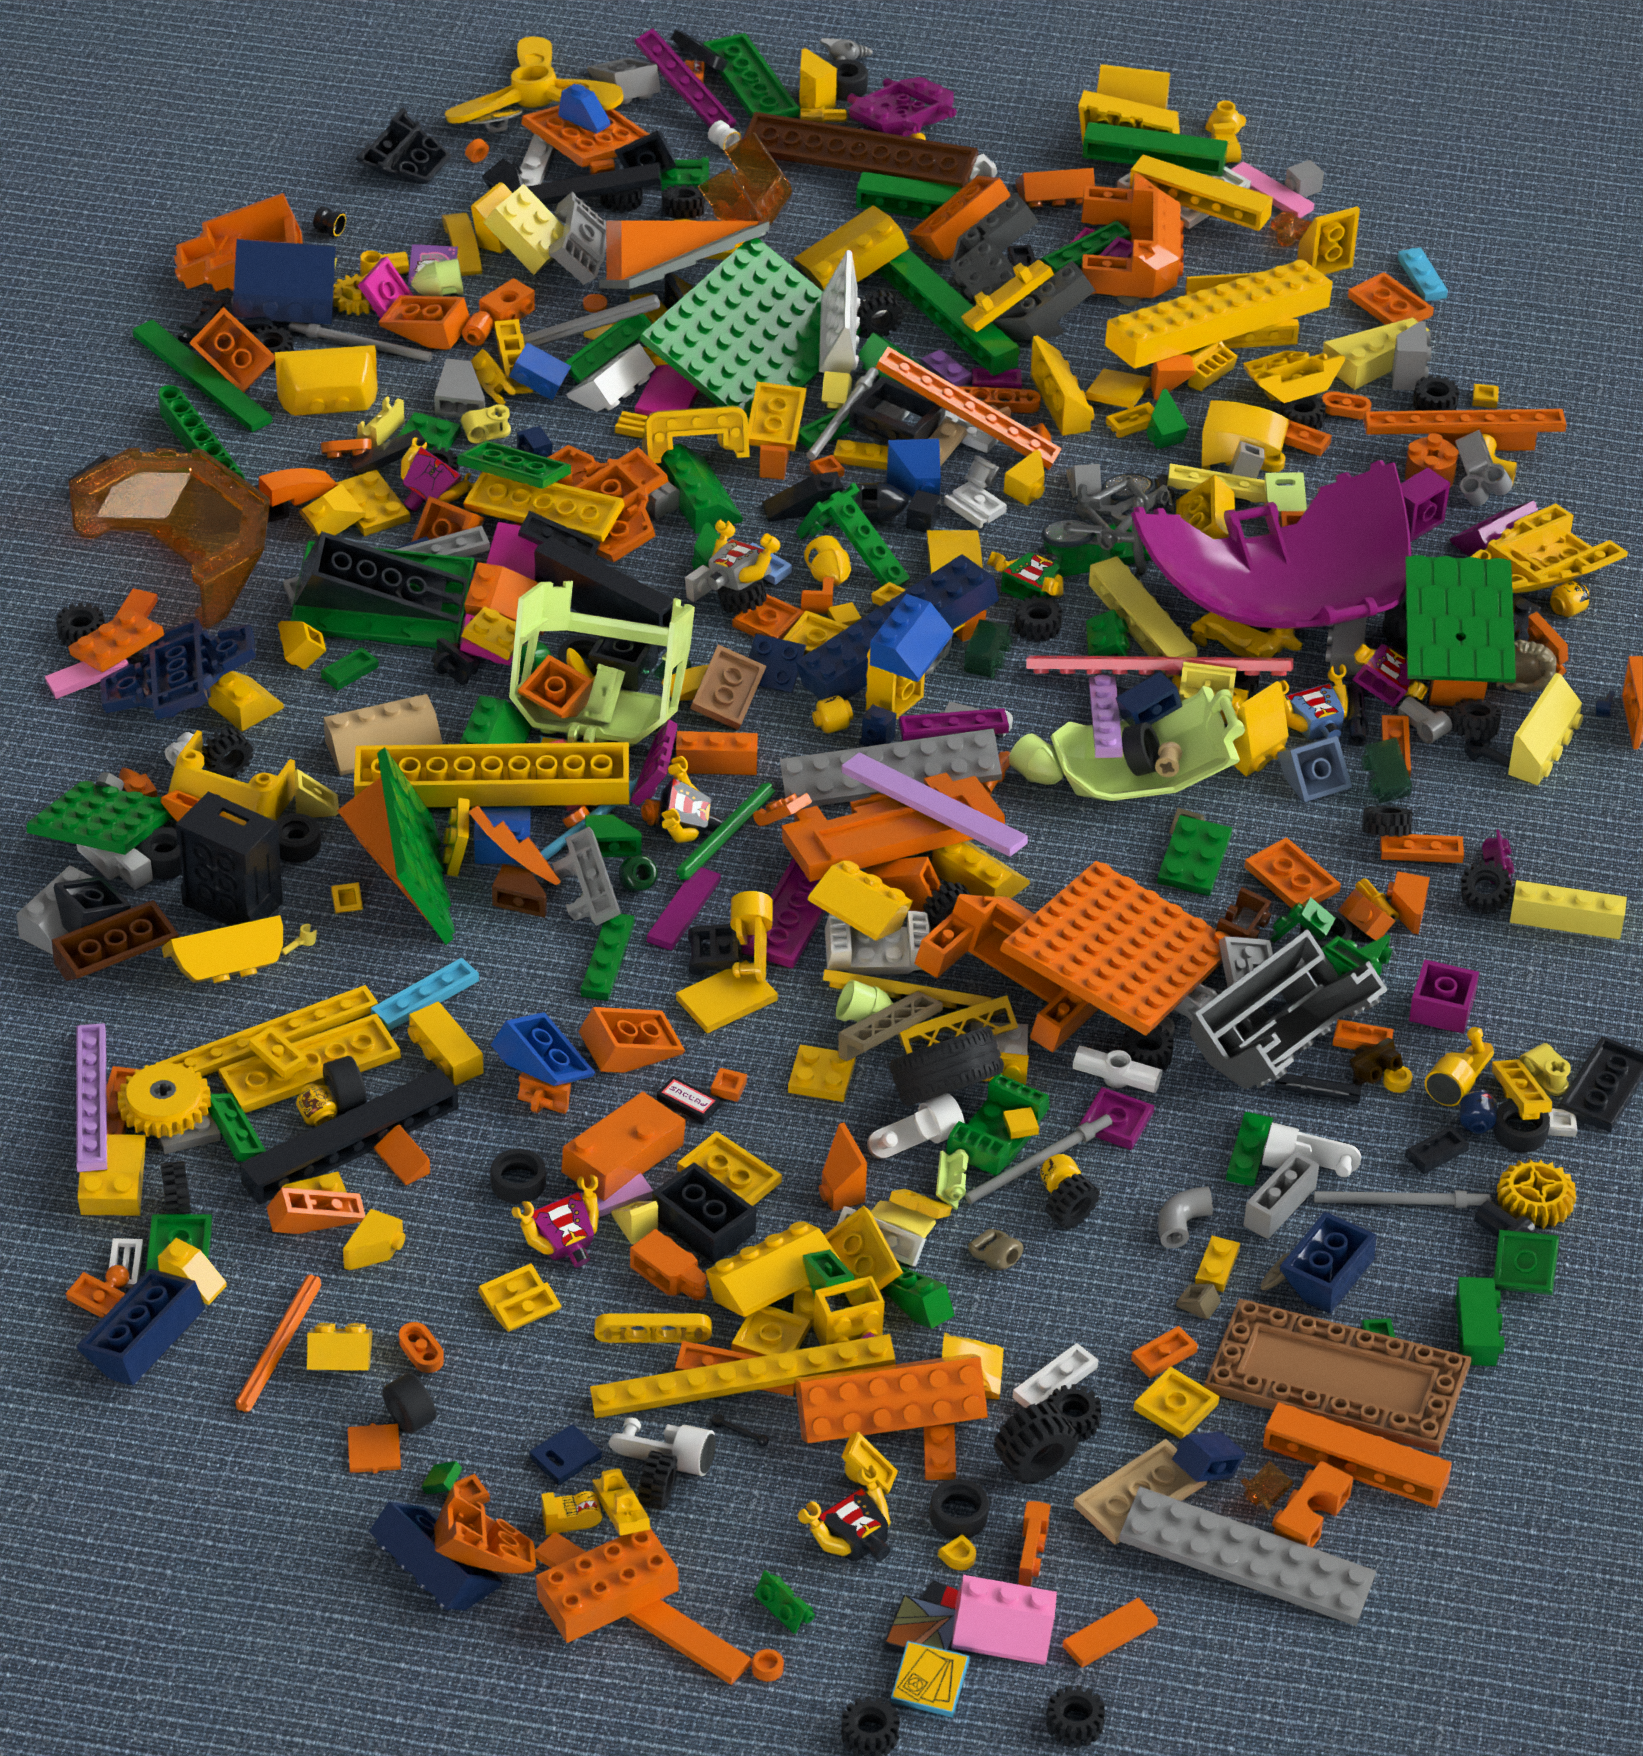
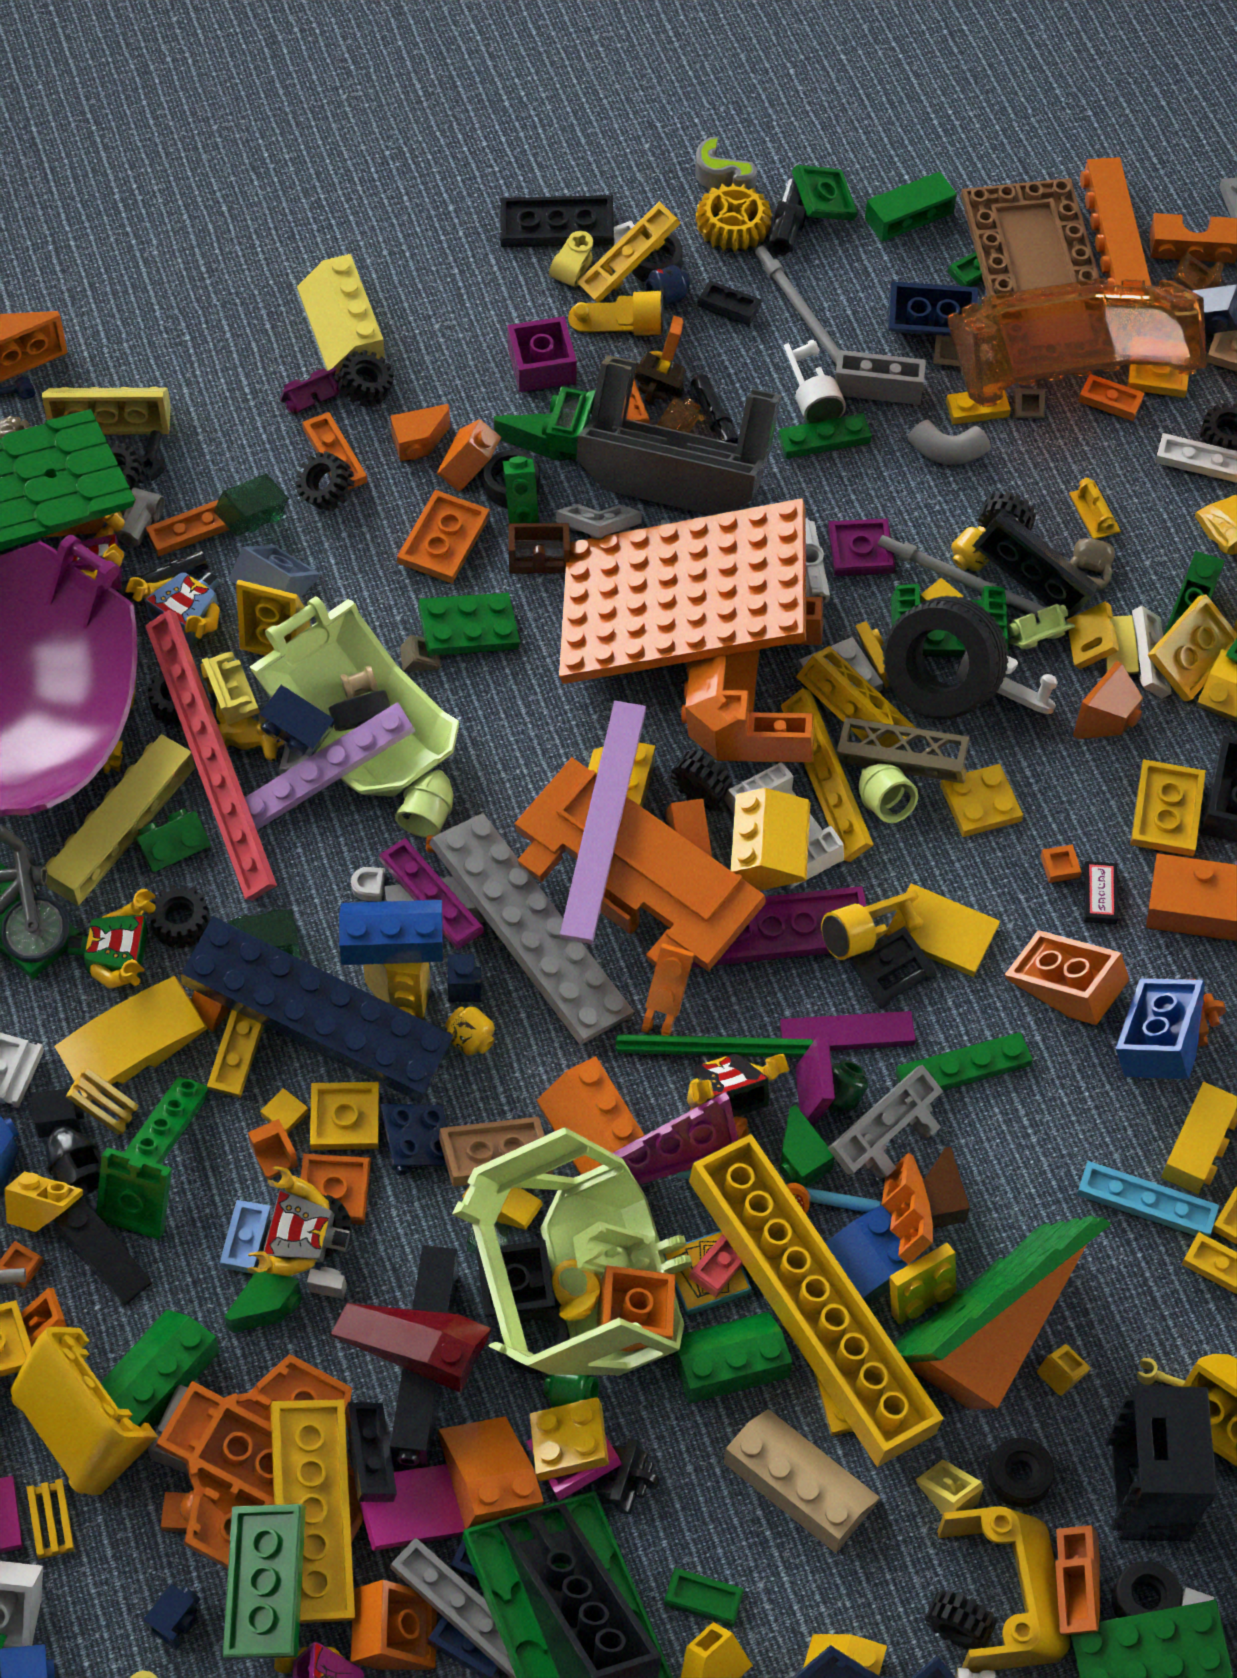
camera: 120 degrees left, 15 degrees up
(605, 565) = (421, 1341): none -> dark red wedge
(658, 849) = (815, 1080): none -> magenta tile
(830, 560) = (217, 1156): yellow helmet -> none
(858, 470) = (36, 1200): none -> yellow slope
(910, 526) = (106, 1088): none -> yellow tile
(1005, 1180) = (1035, 564): none -> black slope
(1056, 1281) = (1094, 510): none -> yellow hinge
(1254, 1302) = (1076, 331): none -> clear orange windscreen
(1326, 1062) = (681, 415): none -> clear orange bracket
(1379, 899) = (434, 459): yellow axle -> none
(1407, 1077) = (672, 338): none -> orange tile
(1600, 1205) = (715, 171): none -> light grey animal

